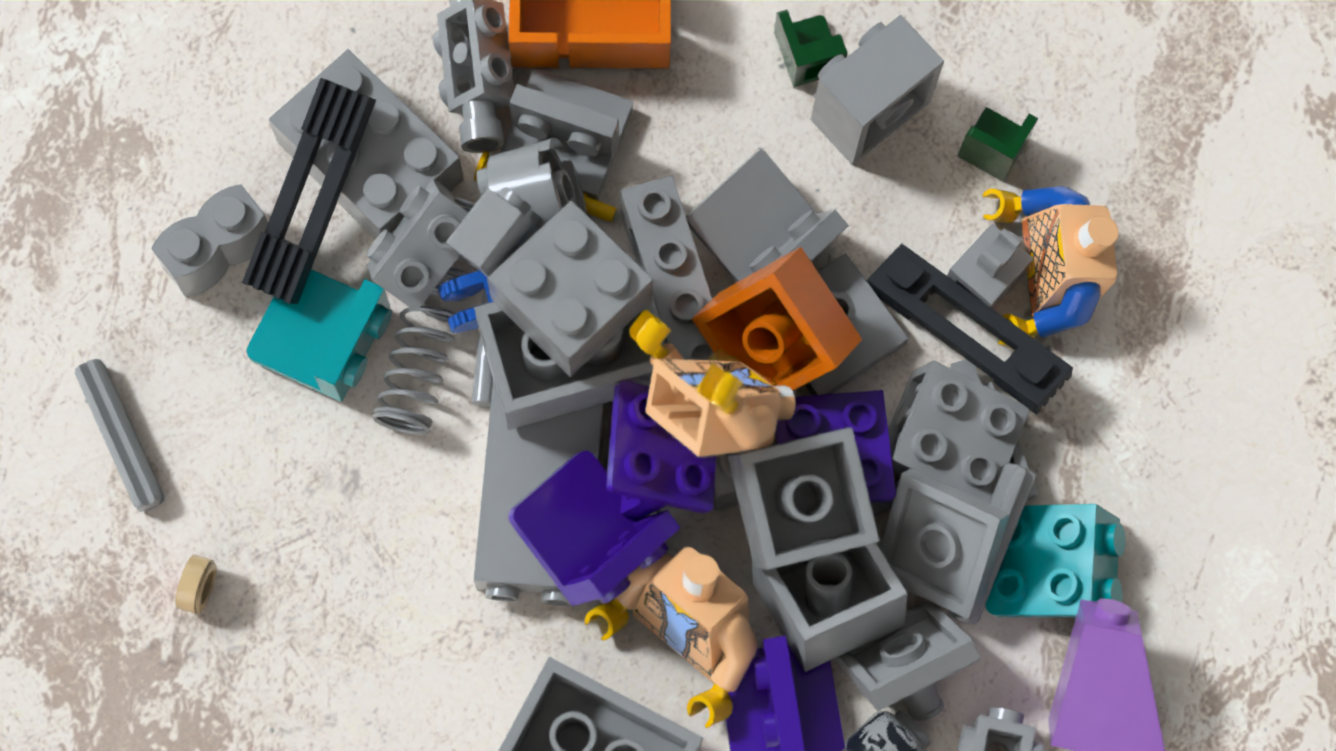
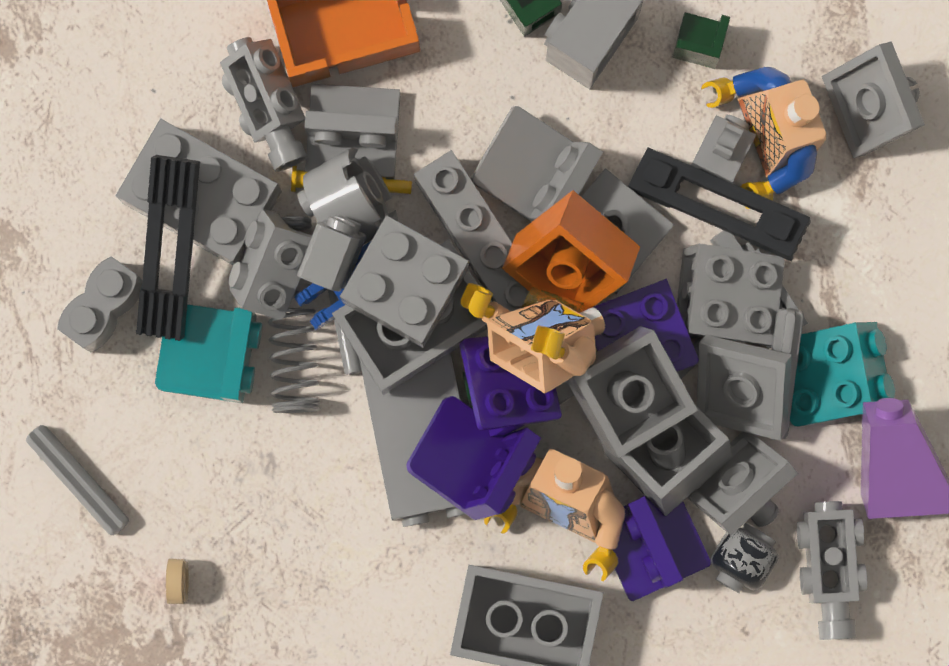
camera: 10 degrees left, 10 degrees up
(1181, 257) = (873, 99): none -> light grey tile

